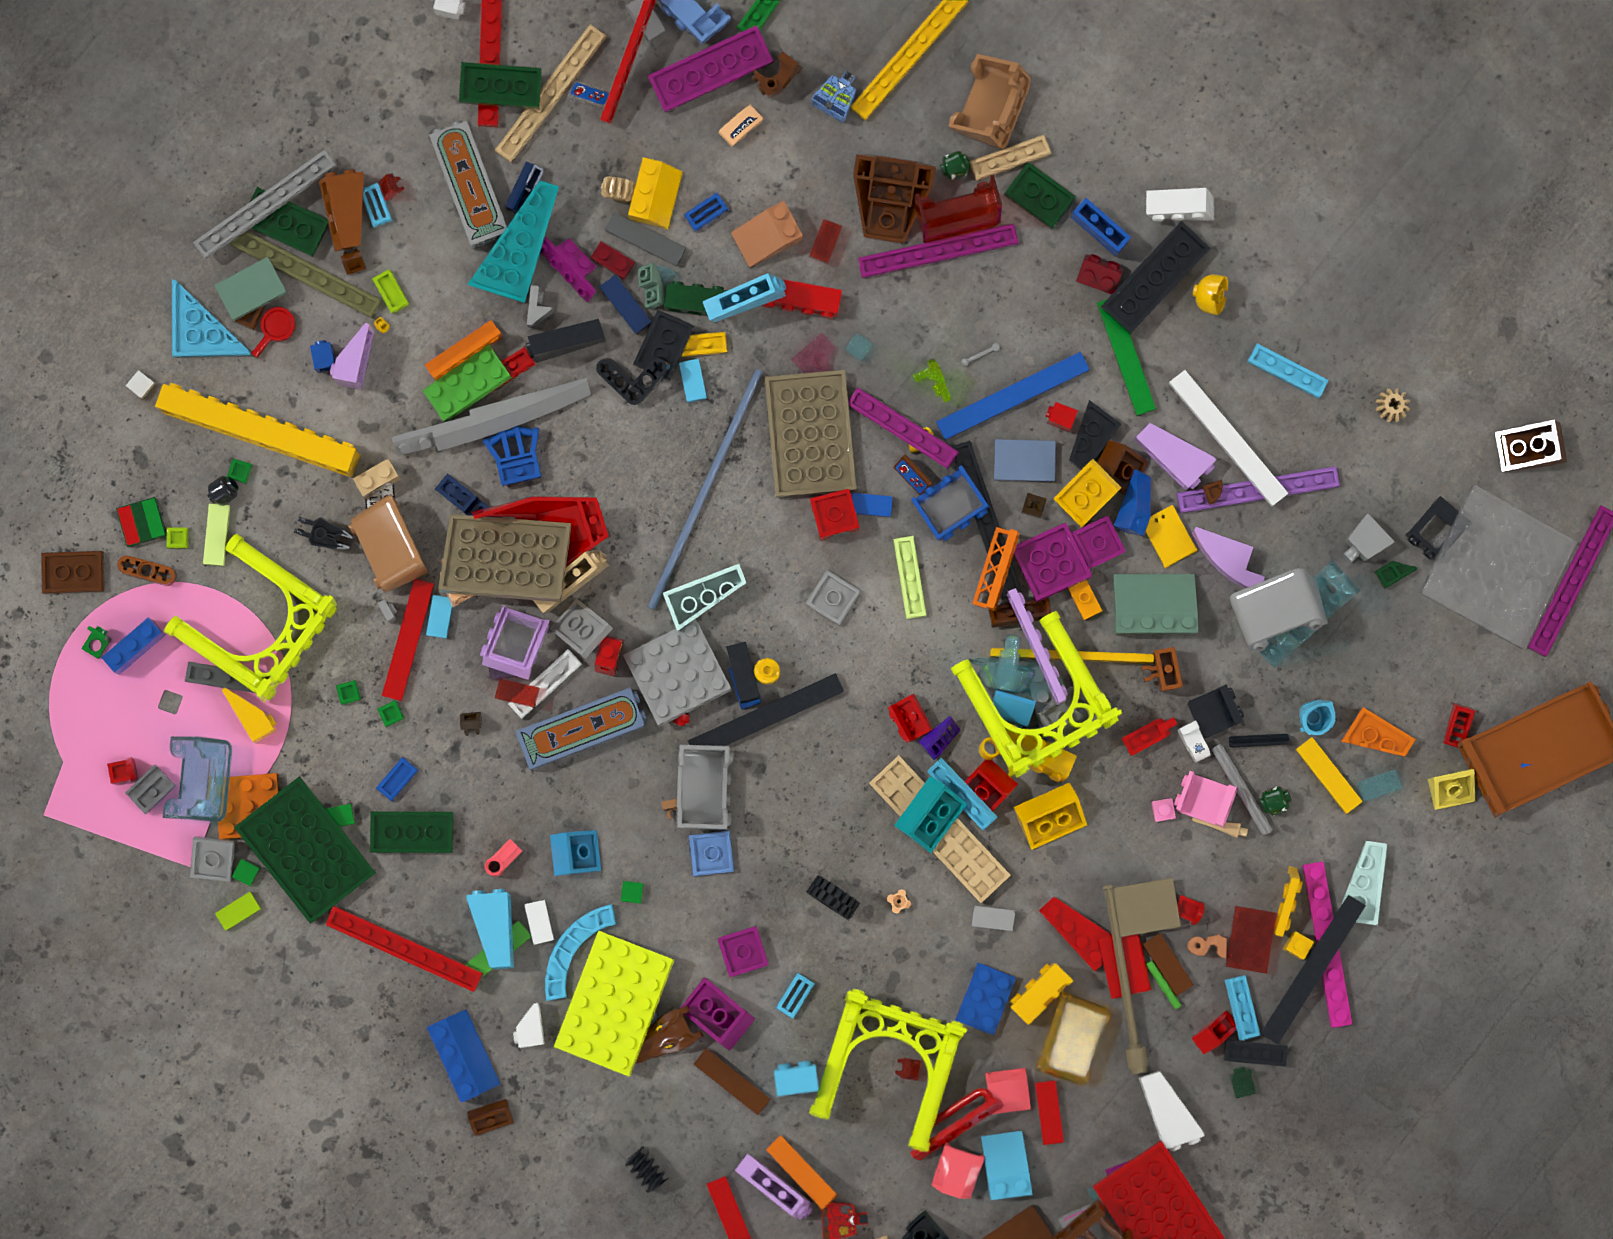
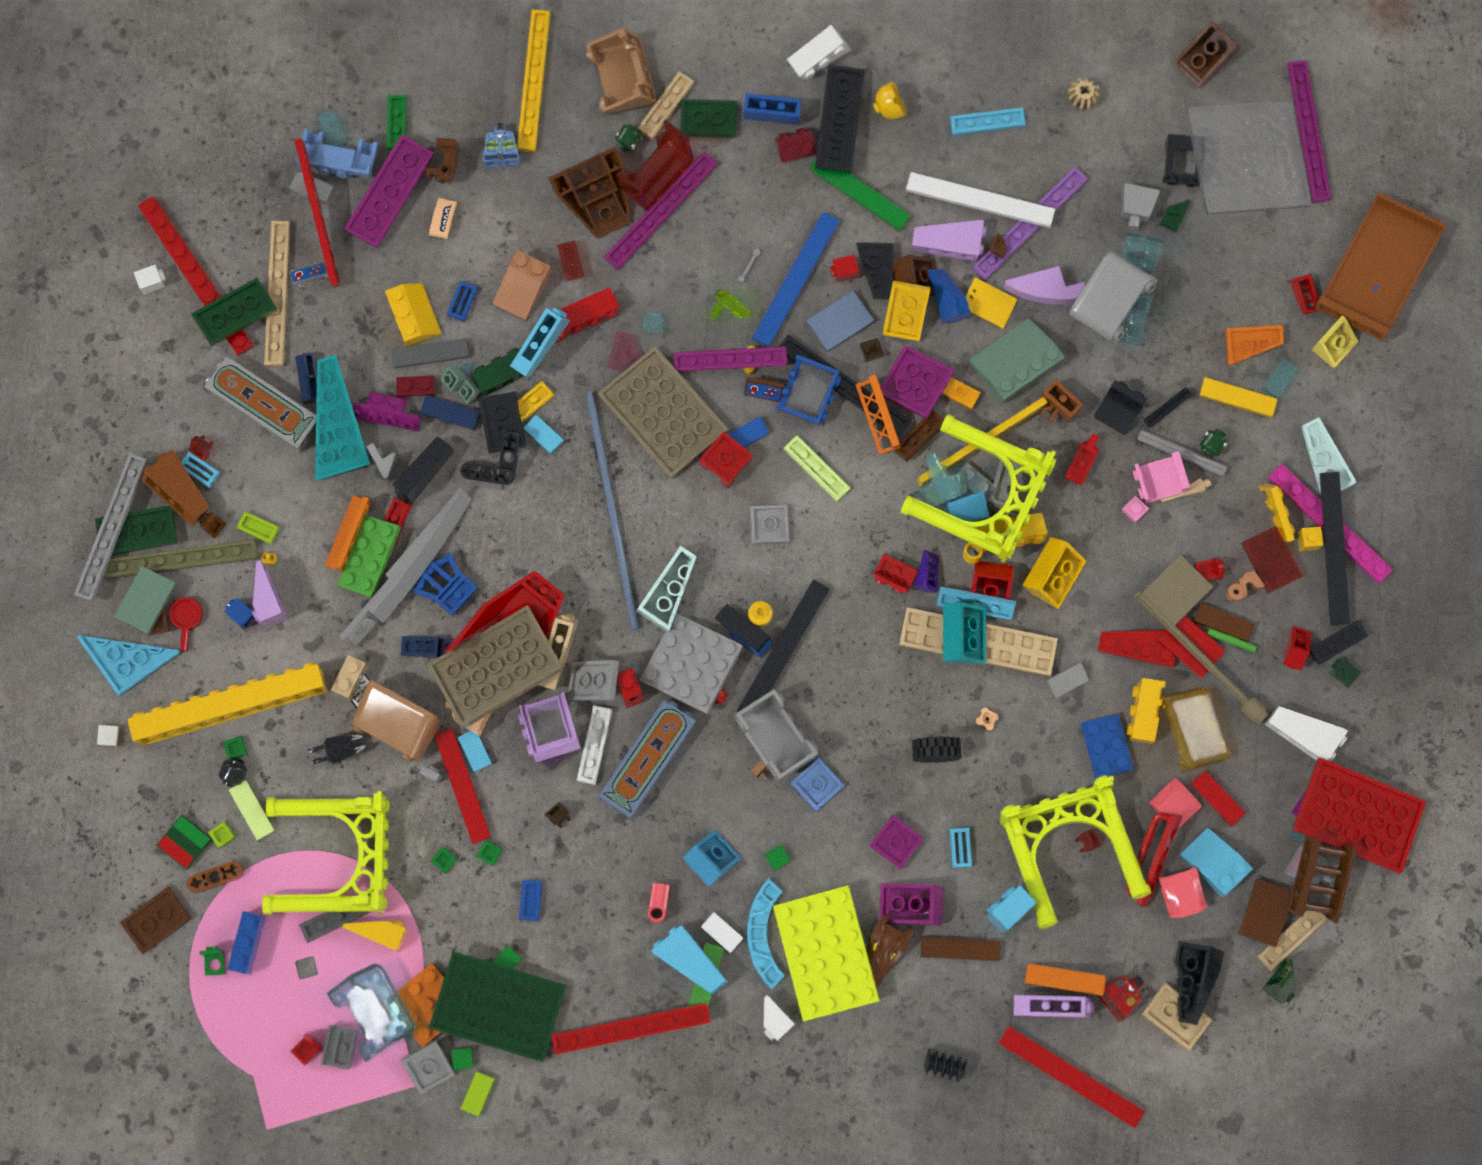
camera: 35 degrees left, 5 degrees down
(411, 832) = (571, 933): dark green plate -> none
(463, 1055) = (738, 1079): blue slope -> none
(490, 1117) = (792, 1113): reddish brown slope -> none
(517, 693) = (578, 766): clear red tile -> none
(617, 189) = (382, 328): tan gear -> none
(1041, 654) = (947, 447): lavender plate -> none
(1098, 542) = (940, 342): magenta plate -> none
(1194, 741) = (1120, 441): white leg -> none
(1242, 1007) = (1303, 615): medium azure tile -> none
(1316, 717) = (1198, 358): medium azure helmet -> none

